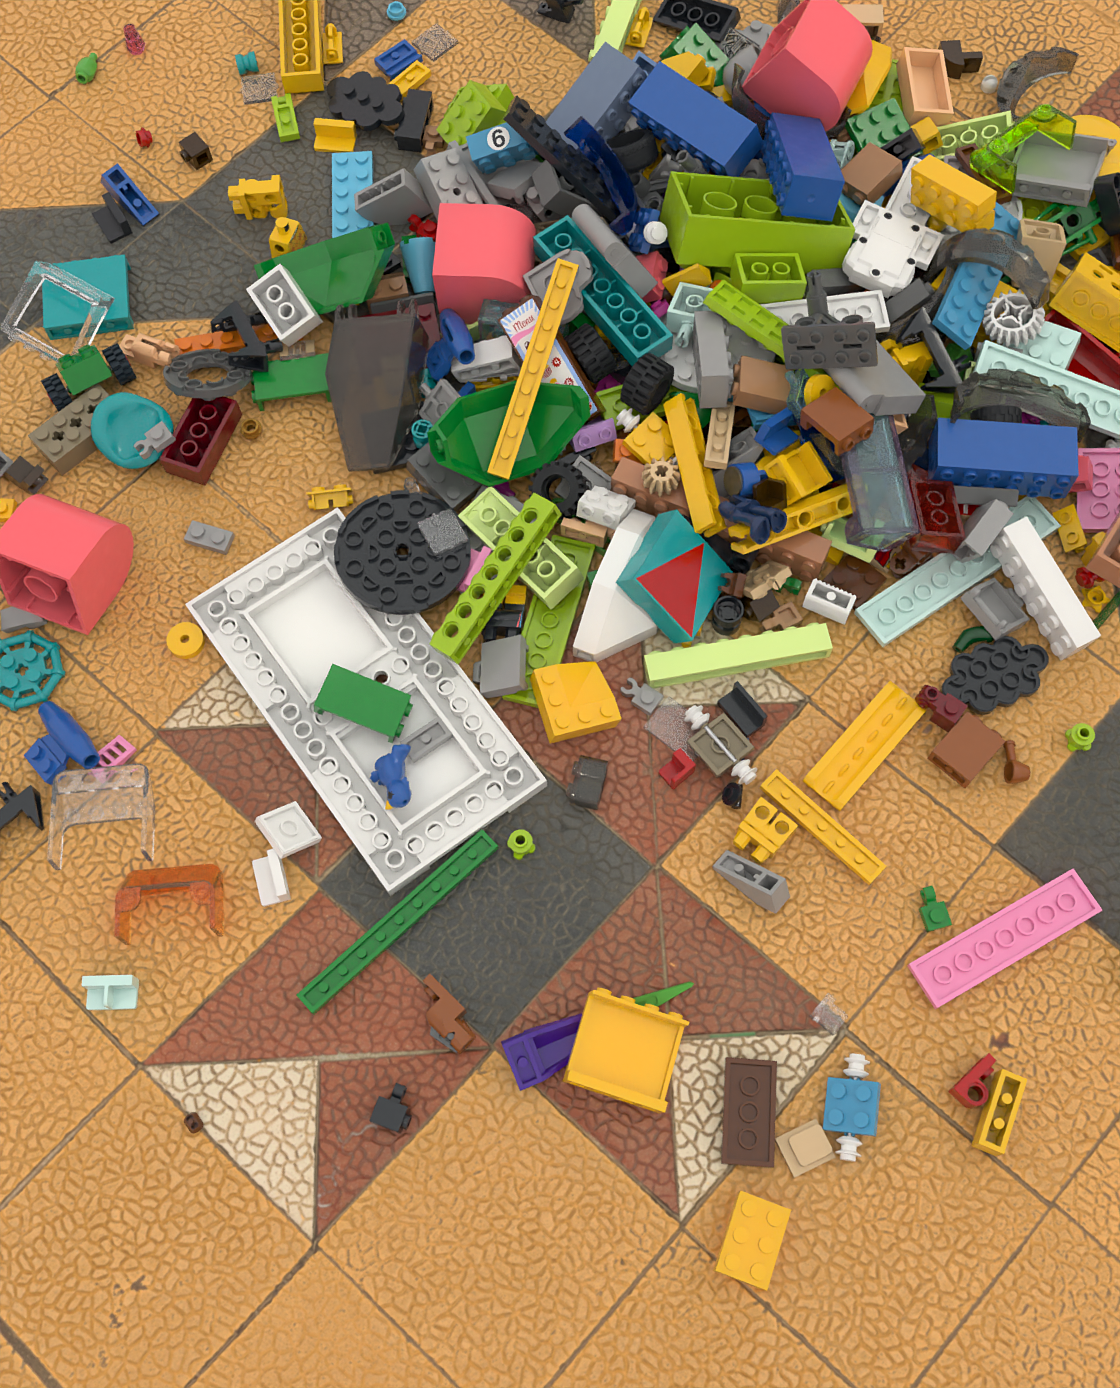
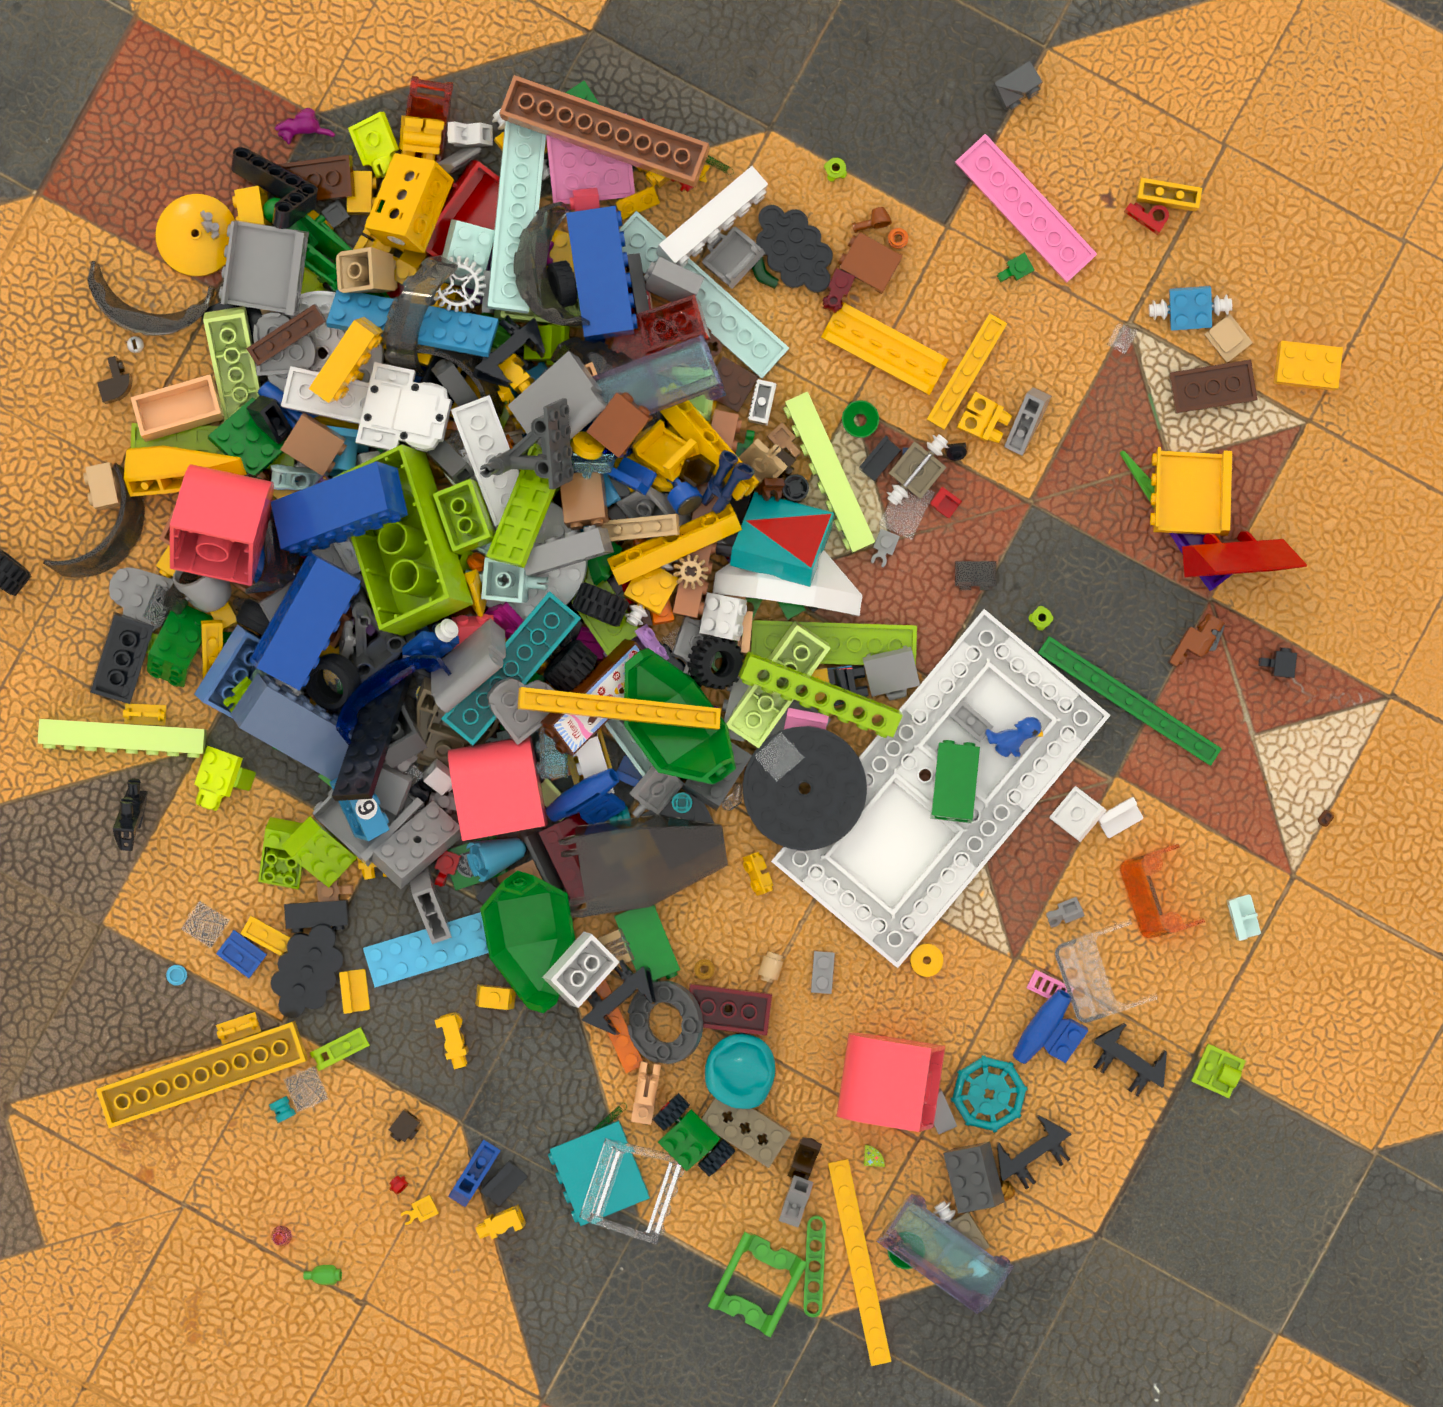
camera: 105 degrees left, 20 degrees up
(72, 205) = (501, 1222): none -> yellow hips
(113, 150) = (423, 1209): none -> yellow plate
(138, 318) = (609, 1118): none -> green piece
(157, 438) = (748, 1043): light grey plate -> none
(183, 794) = (1068, 910): none -> light grey plate
(231, 487) = (770, 967): none -> tan brick
(530, 1084) = (1238, 557): none -> red piece
(558, 88) = (244, 779): none -> lime slope
(560, 64) = (216, 777): none -> neon yellow plate
(574, 700) = (907, 602): yellow slope -> none
(688, 66) = (210, 649): yellow slope -> none
(793, 689) = (866, 409): none -> green piece
(929, 135) = (235, 397): yellow brick -> none
(990, 158) = (270, 335): clear neon green windscreen -> none
(994, 783) = (898, 231): none -> orange plate

